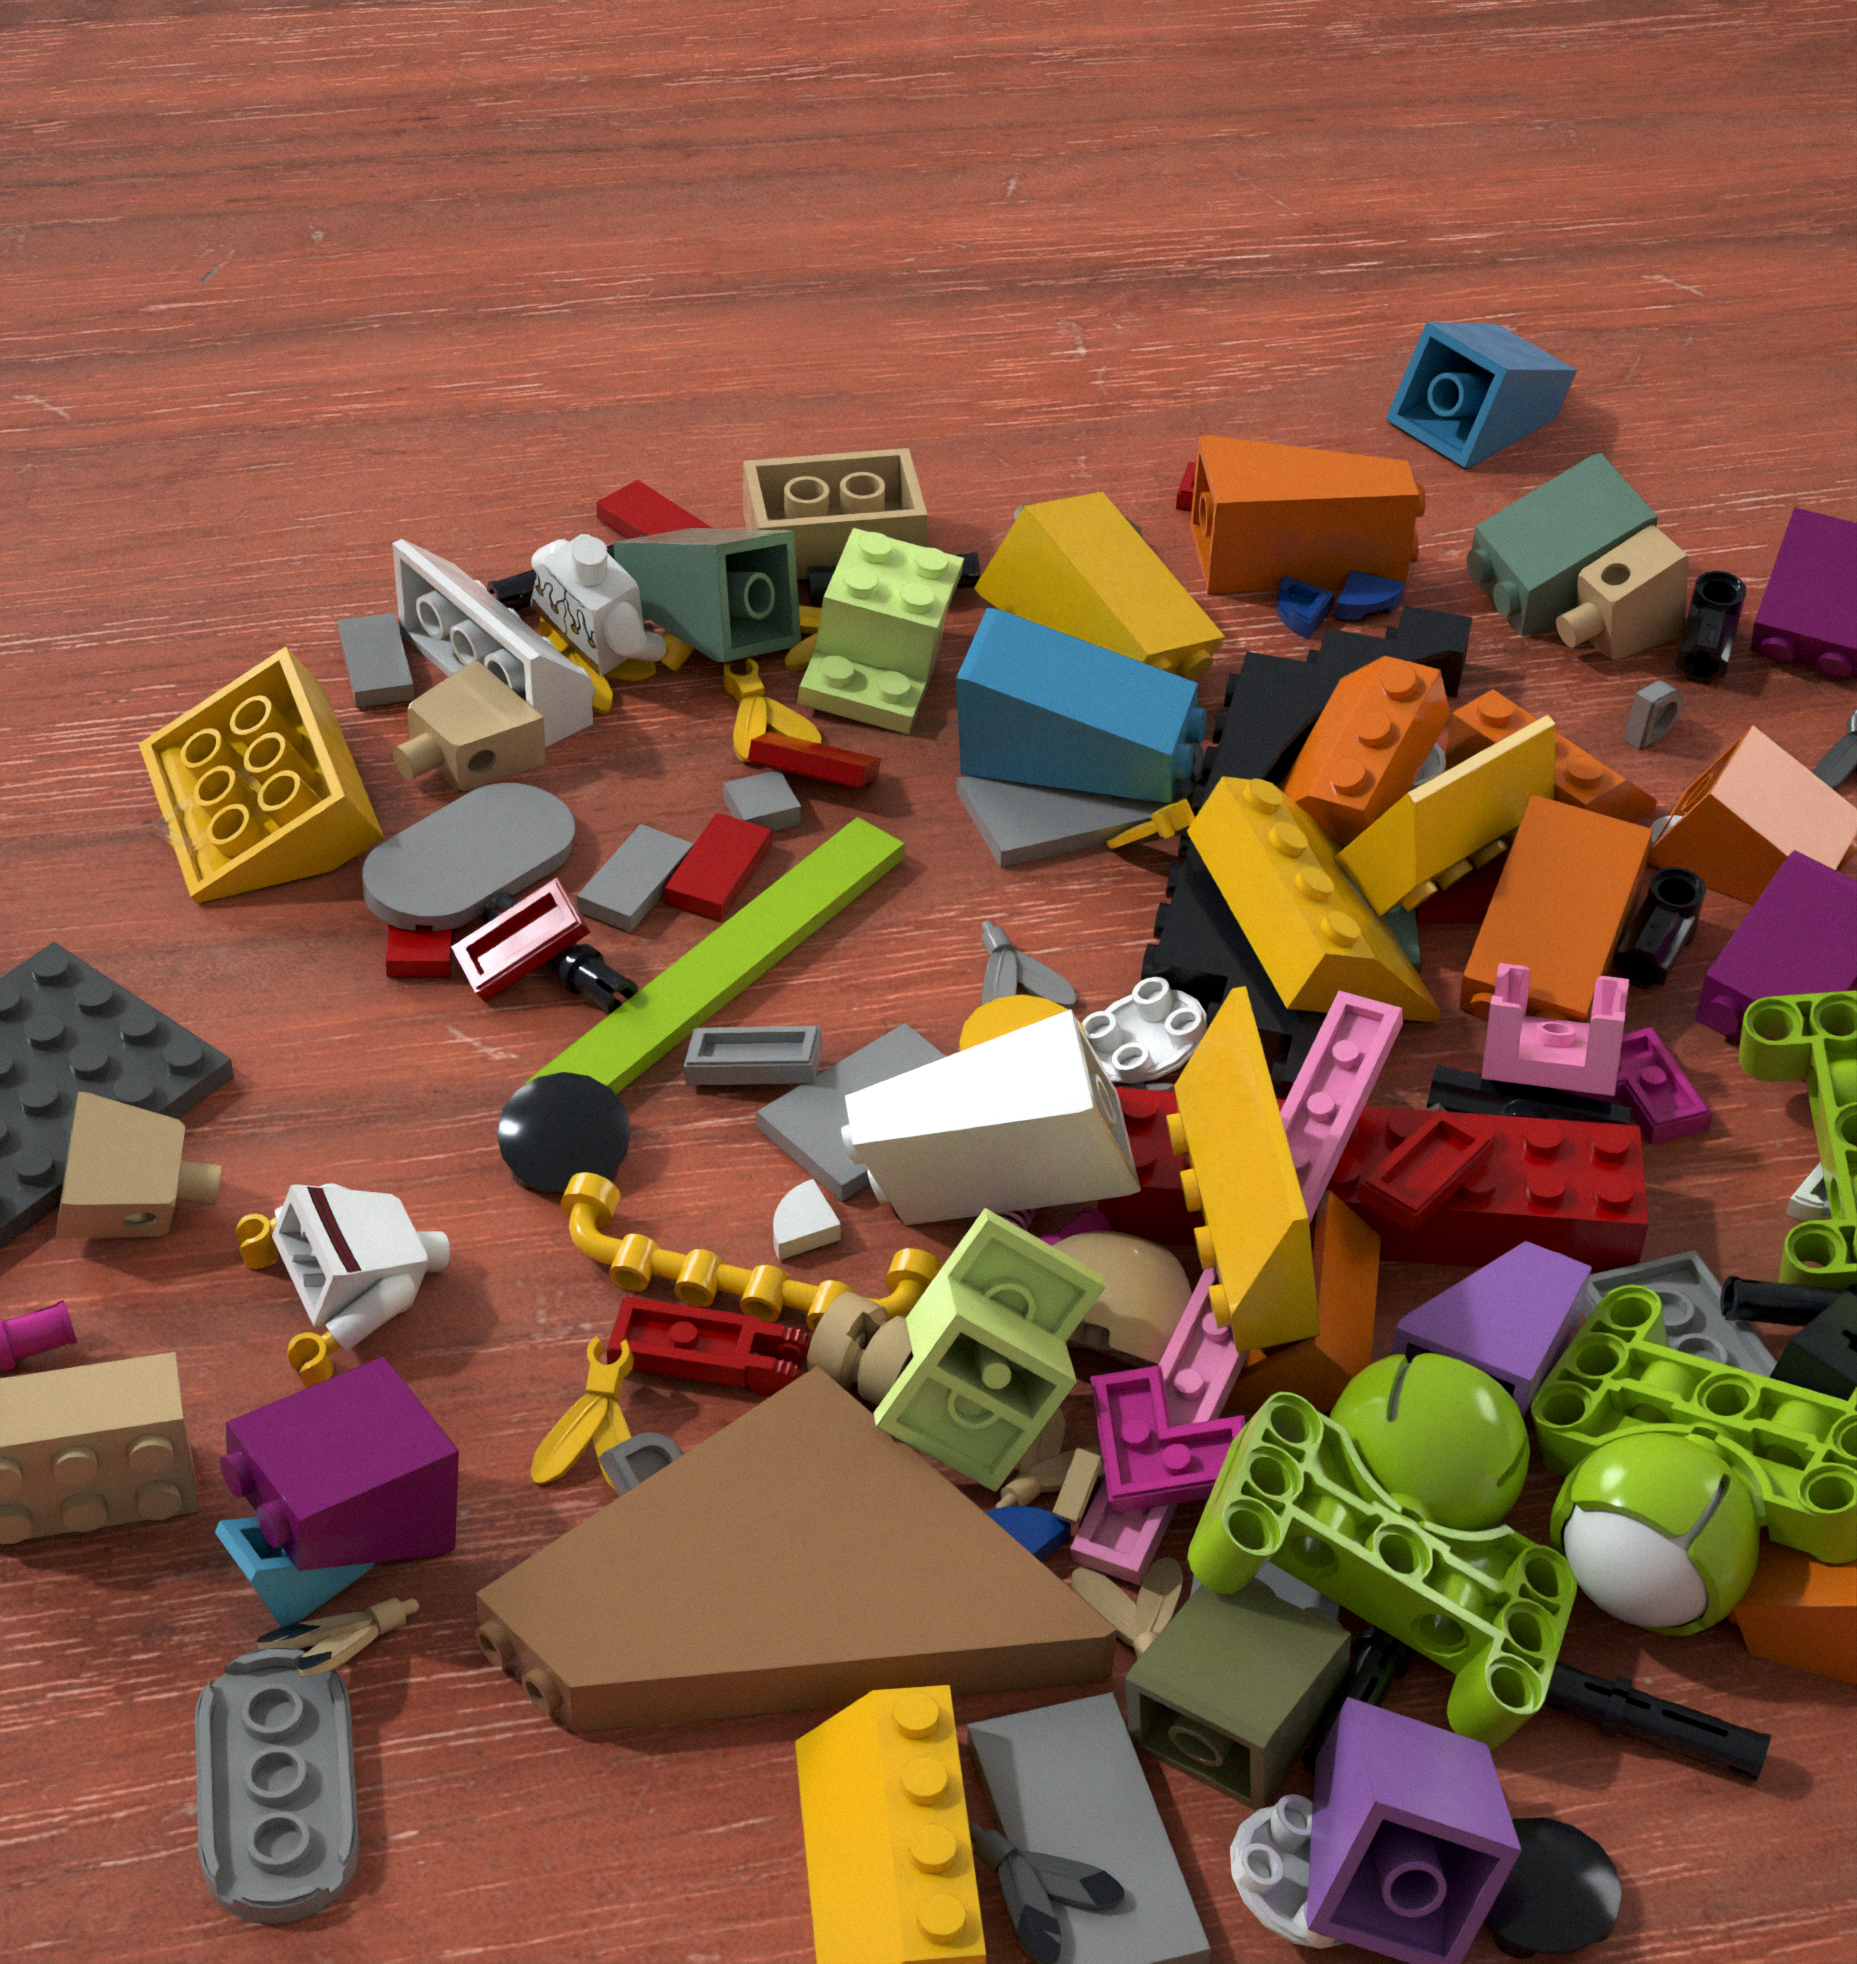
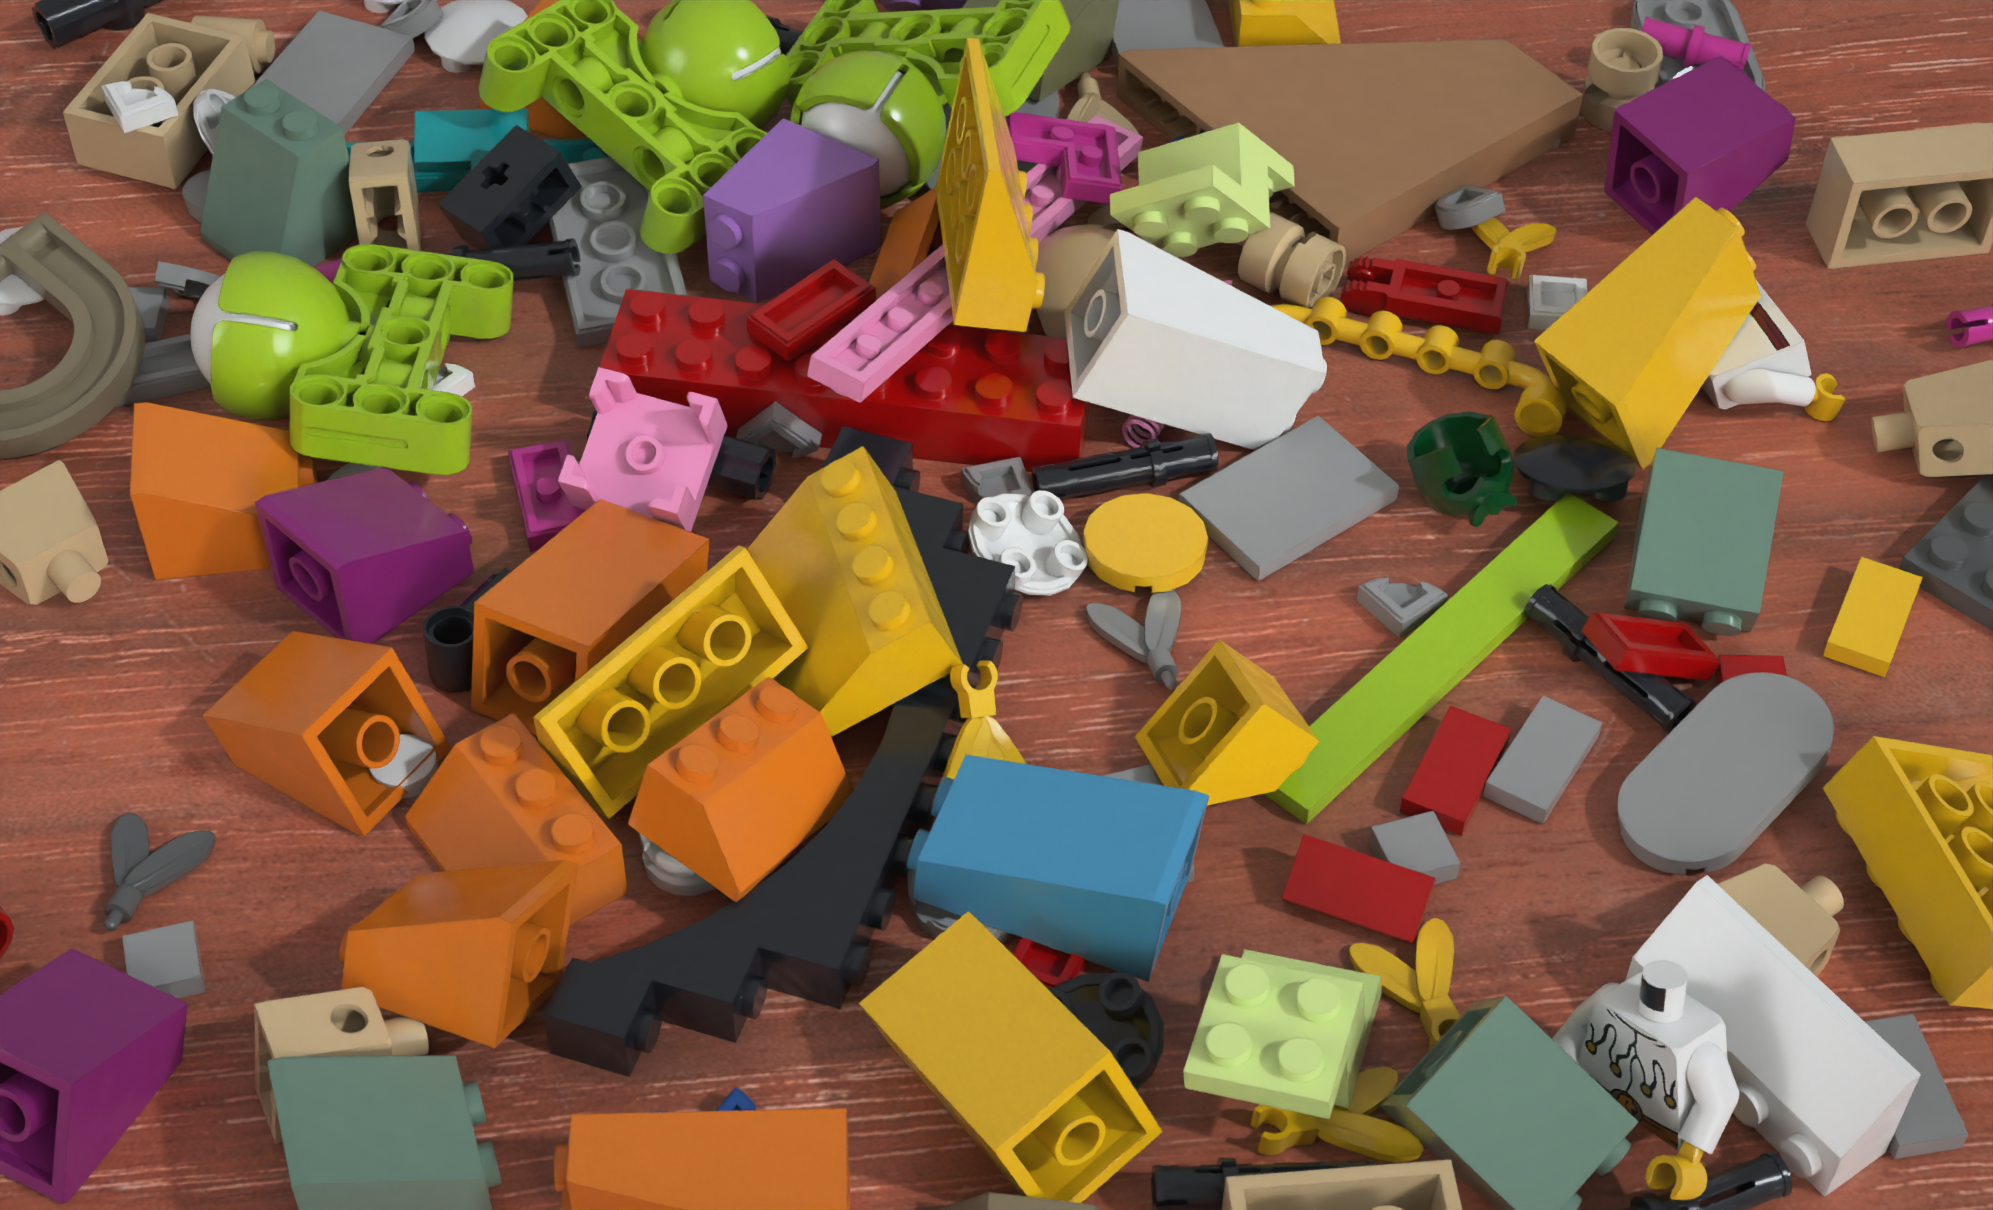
camera: 175 degrees left, 5 degrees up
(278, 1015) = (1872, 617): none -> yellow tile
(295, 1715) = (1694, 45): none -> dark pink pin
(410, 1658) = (1620, 68): none -> tan wheel
(443, 1048) = (1703, 541): none -> sand green slope
(469, 1177) = (1653, 329): none -> yellow slope
(546, 1360) = (1550, 298): none -> white tile
(693, 1103) = (1463, 466): none -> dark green helmet
(753, 1055) = (1405, 540): light grey tile -> none
(757, 1007) = (1400, 605): none -> light grey tile
(804, 1221) = (1349, 400): white tile -> none
(933, 839) = (1226, 731): none -> yellow slope
(1077, 1486) = (1128, 150): tan tile -> none
(1559, 646) = (466, 947): none -> orange slope
(1653, 714) = (353, 906): light grey tile -> none
(1711, 626) = (220, 1055): black piece -> none
(1799, 694) = (166, 959): none -> light grey tile

